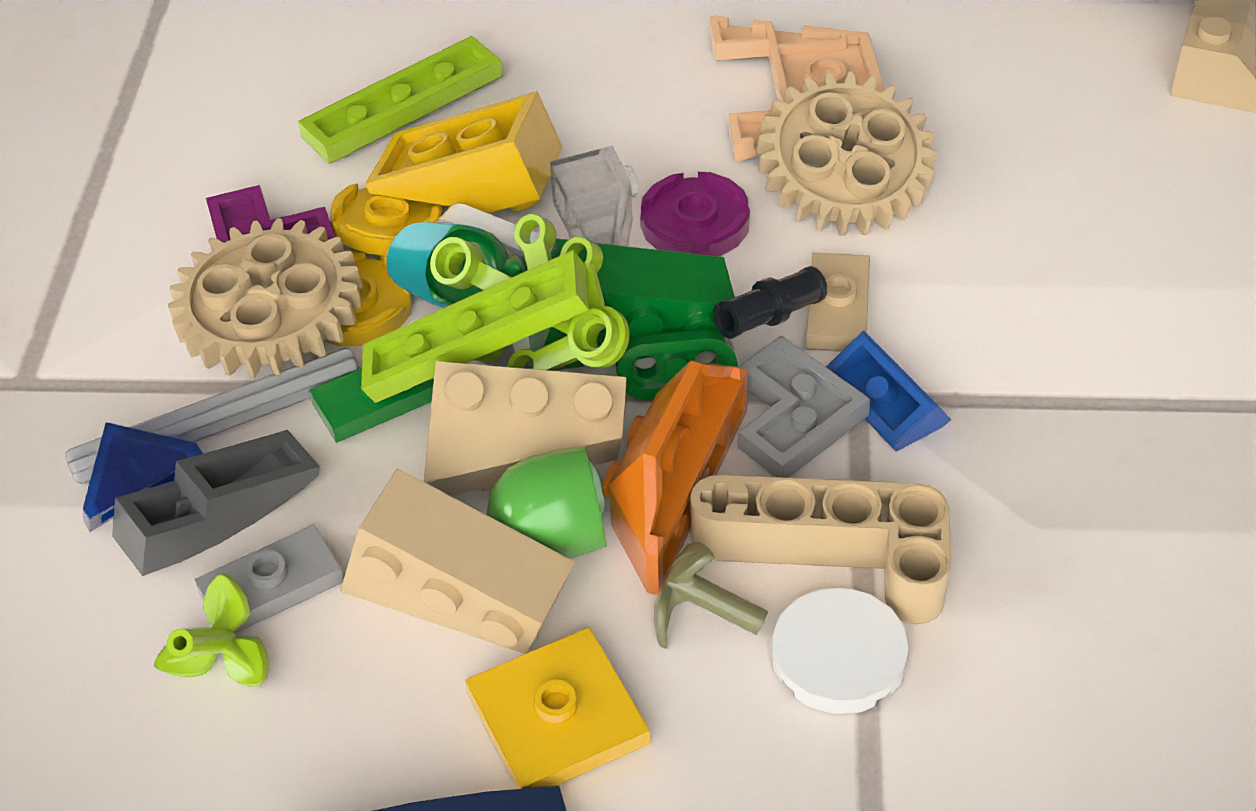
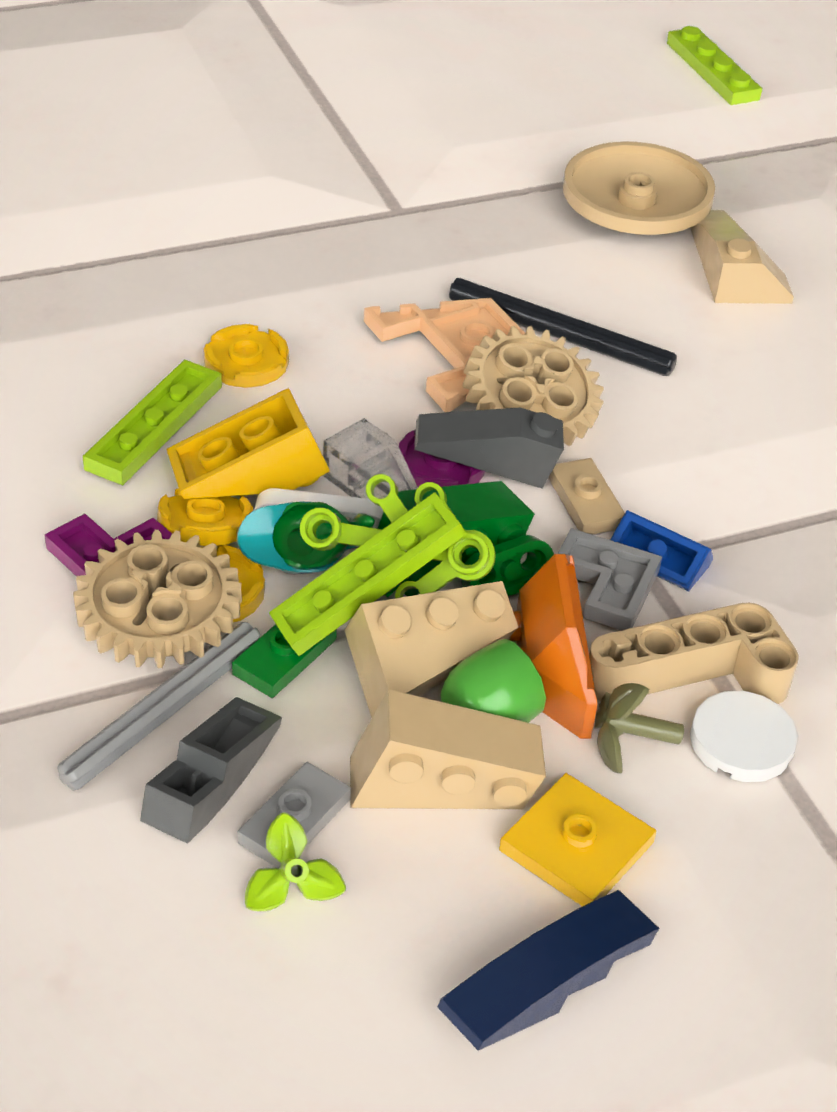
camera: 30 degrees left, 5 degrees down
(129, 463) = (129, 758): clear blue slope -> none
(553, 46) = (247, 355): none -> yellow tile
(751, 207) = (498, 441): none -> dark grey slope
(769, 302) = (555, 505): black pin -> none
(952, 91) = (572, 329): none -> black axle

